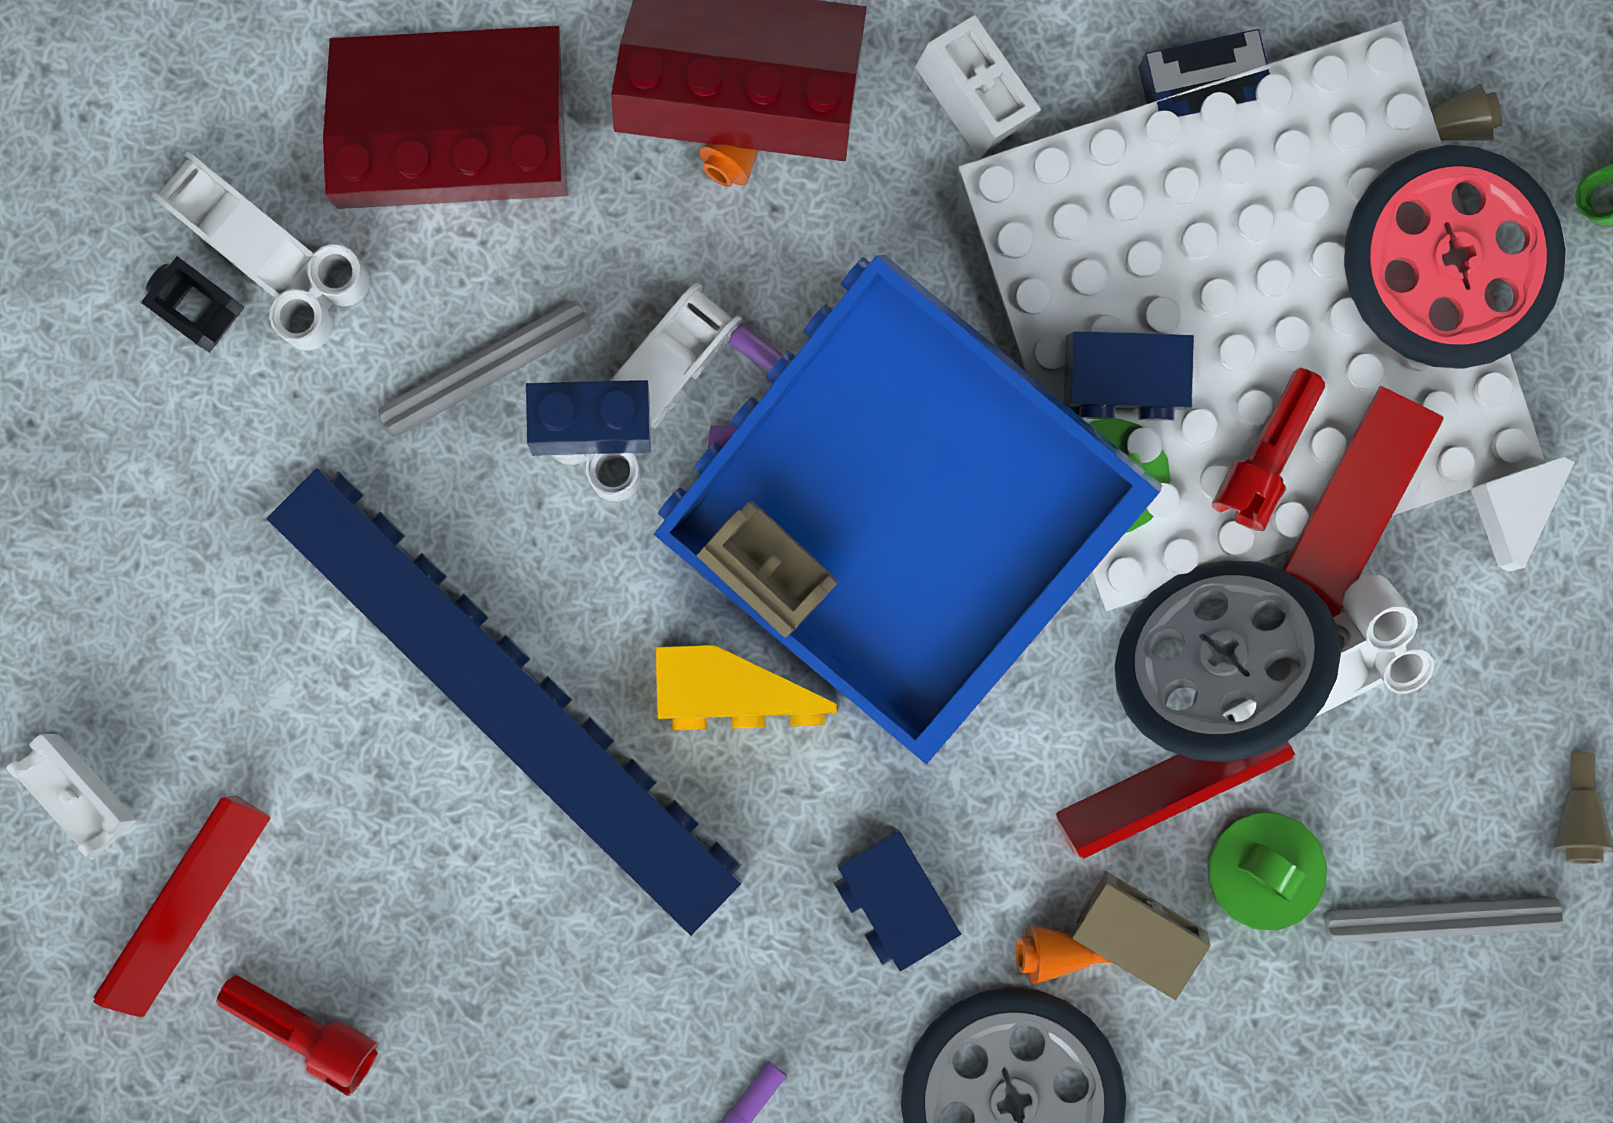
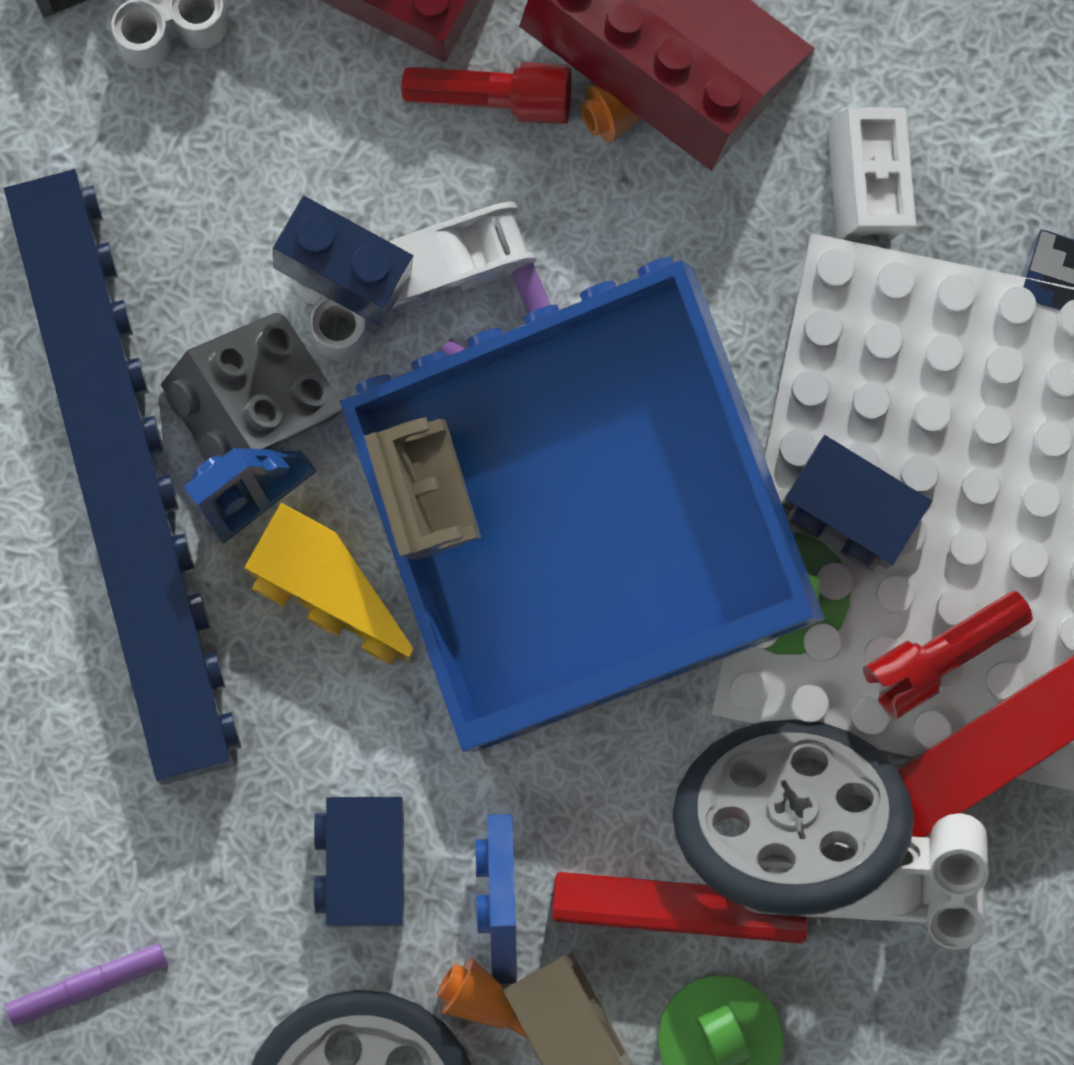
camera: 25 degrees right, 5 degrees down
(484, 368) = (278, 171): light grey axle -> none
(573, 569) = (250, 388): none -> dark grey bracket
(614, 653) = (244, 485): none -> blue wing
(656, 179) = (533, 92): none -> red piece
(1032, 876) = (497, 910): none -> blue wing

